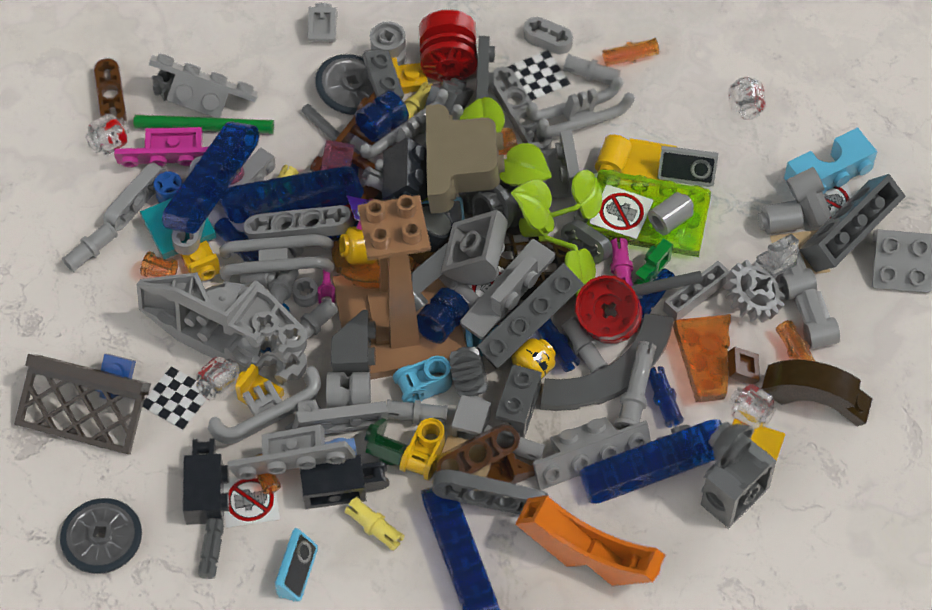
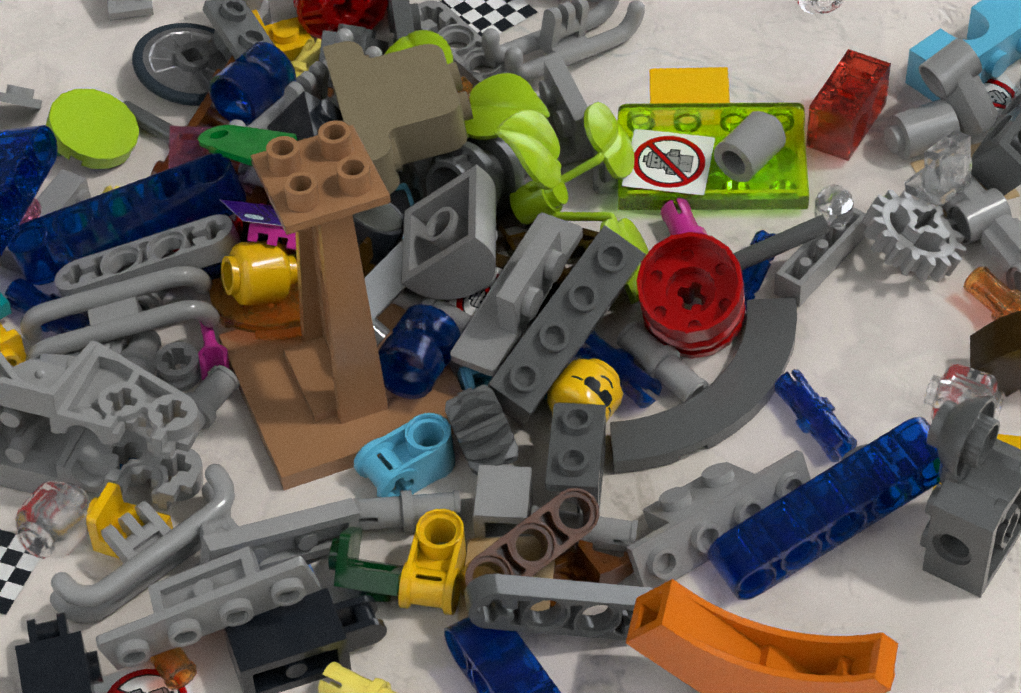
camera: 10 degrees left, 10 degrees down
(283, 121) = (93, 128): none -> lime tile
(347, 390) = (283, 492): light grey wheel -> none
(352, 345) = (276, 430): dark grey slope -> none
(367, 164) = (238, 141): none -> green piece
(587, 239) = (627, 204): dark grey beam -> none
(613, 153) = (633, 83): yellow brick -> none
(633, 400) = (767, 425): light grey pin -> none
(656, 259) = (744, 218): green plate -> none
(688, 166) = (754, 79): slope -> none
(705, 354) = (862, 342): clear orange wing -> none
(714, 267) = (841, 207): none -> clear hinge
(739, 193) = (848, 104): none -> clear red brick
(743, 365) = (928, 345): reddish brown tile -> none

